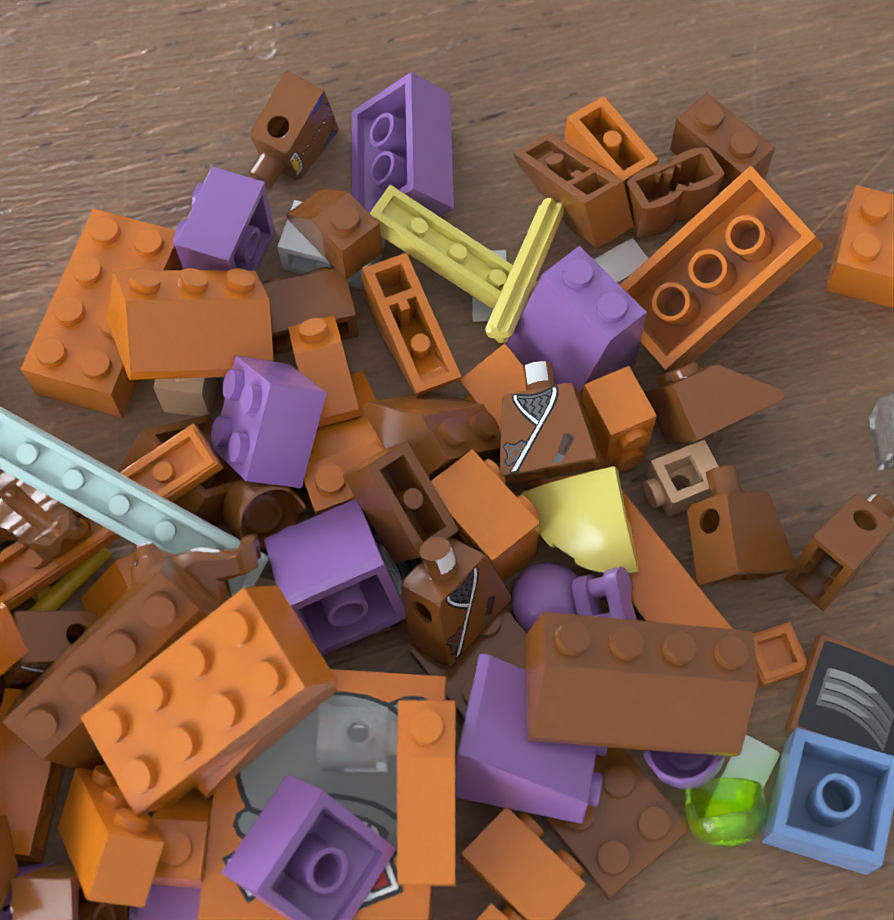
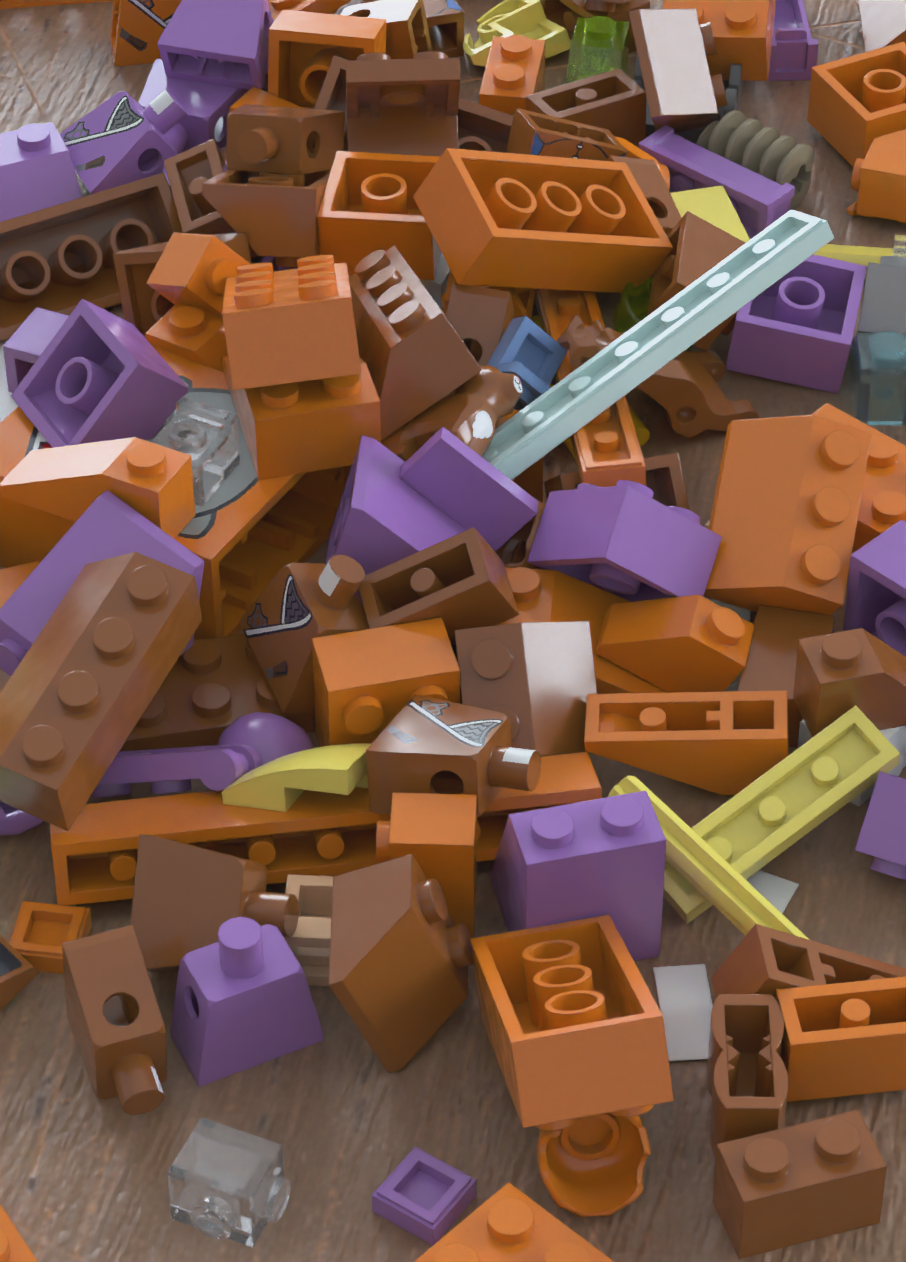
camera: 115 degrees right, 25 degrees down
(78, 587) = (529, 355): none -> medium blue bracket
(277, 532) = (468, 488): none -> medium lavender tile
(791, 478) = (241, 1002): none -> medium lavender torso
(831, 338) = (424, 1195): none -> medium lavender tile

